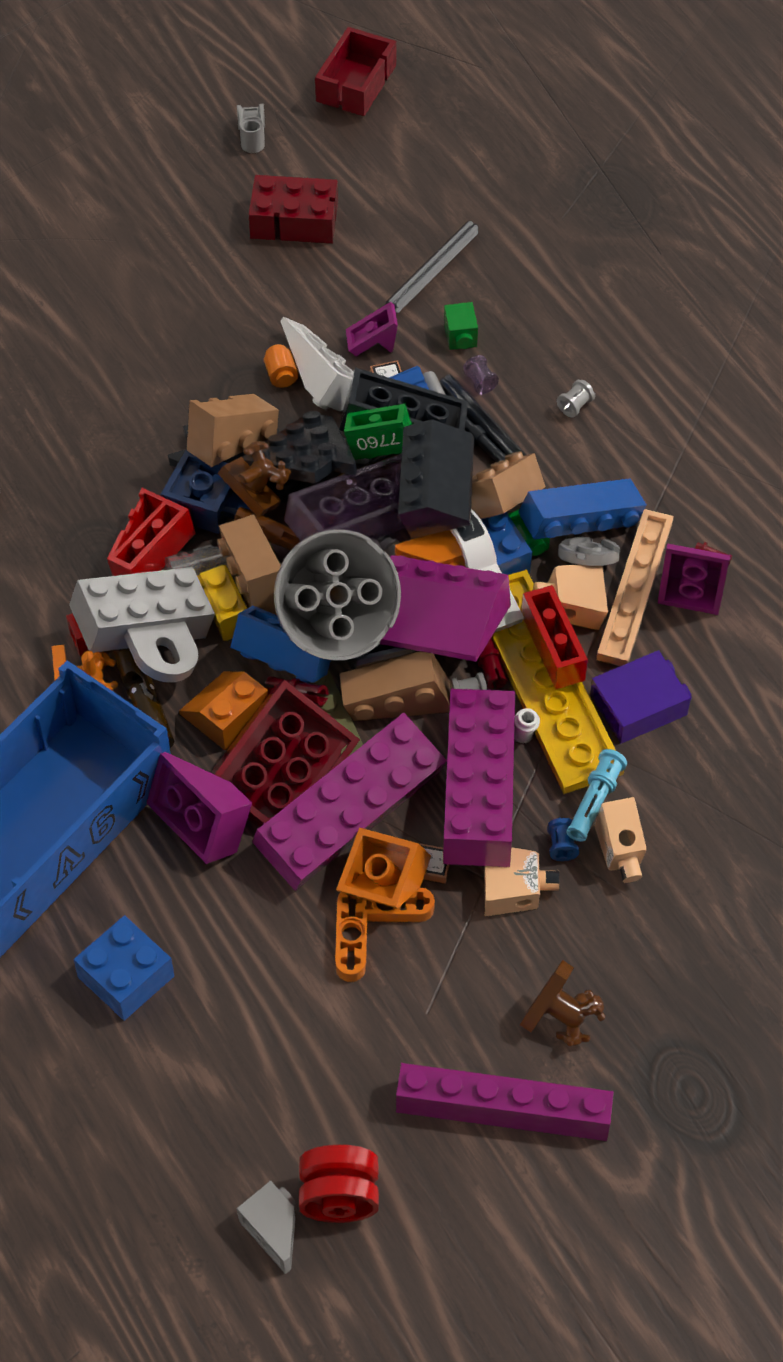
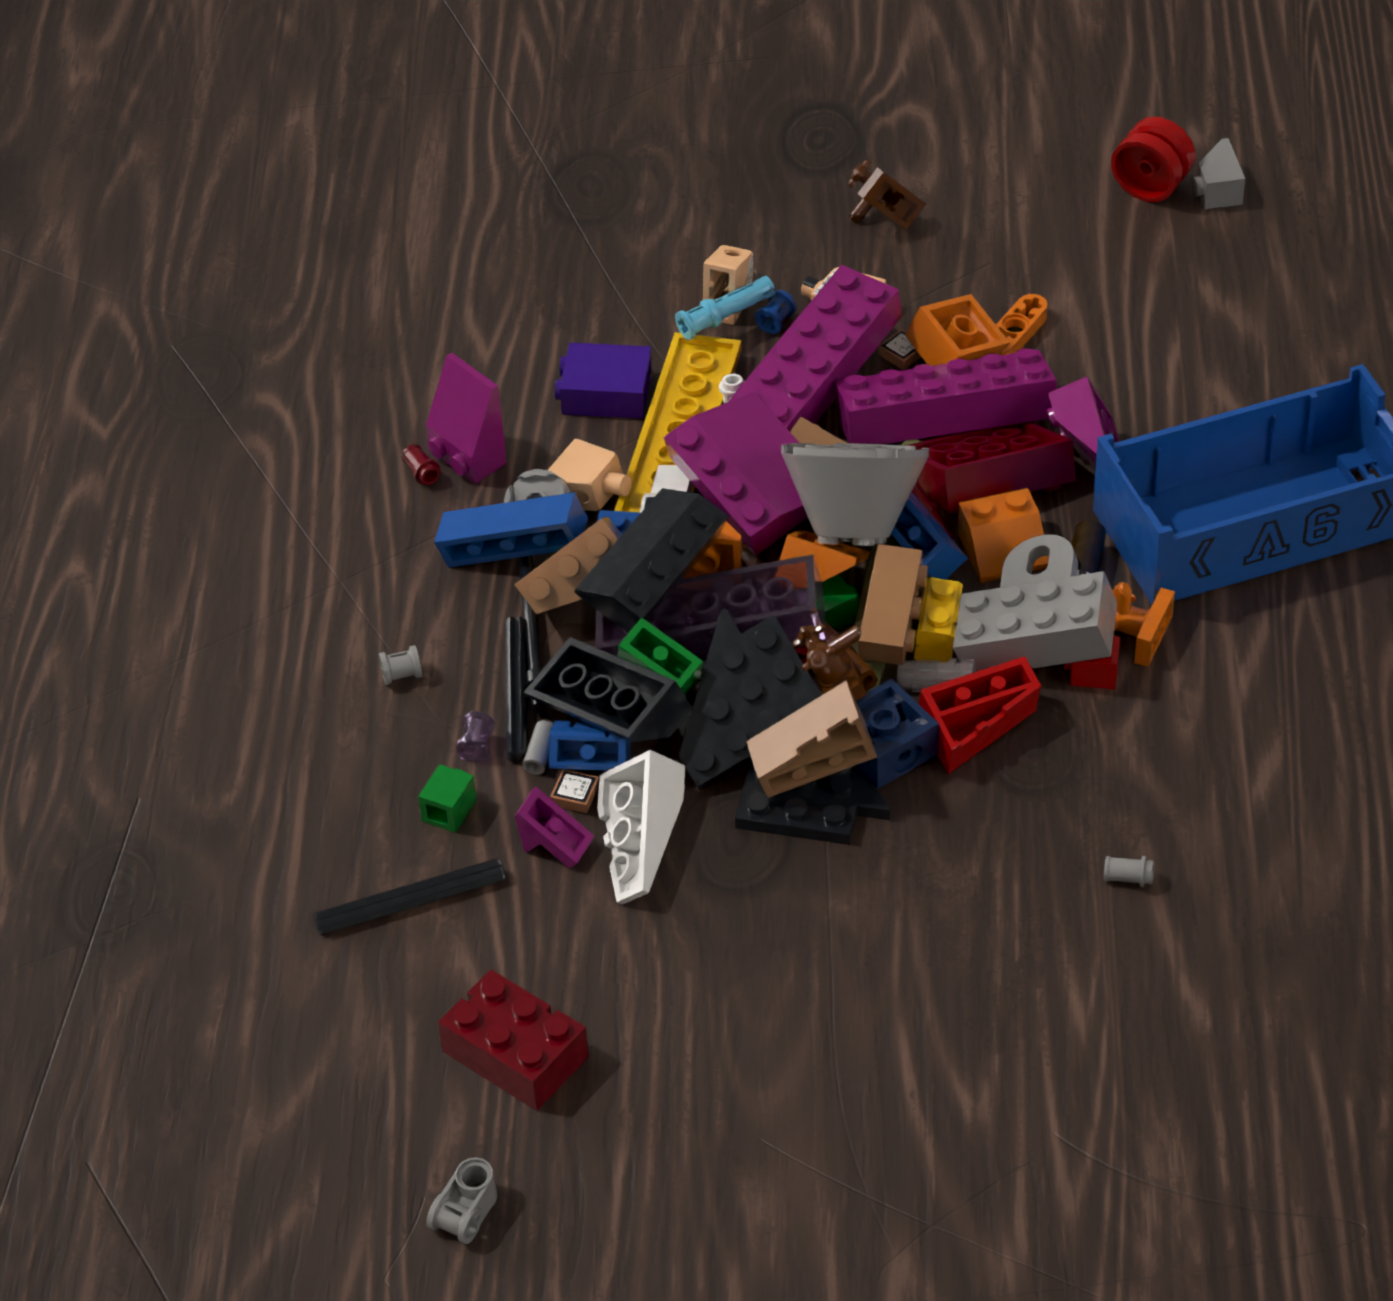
camera: 145 degrees left, 10 degrees down
(124, 967) = (1237, 370): blue brick -> none
(280, 366) = (687, 849): orange brick -> none
(355, 71) = (274, 1197): dark red piece -> none
(504, 1101) = (979, 170): magenta brick -> none
(554, 637) = (649, 422): red brick -> none
(635, 588) = (491, 484): light nougat plate -> none

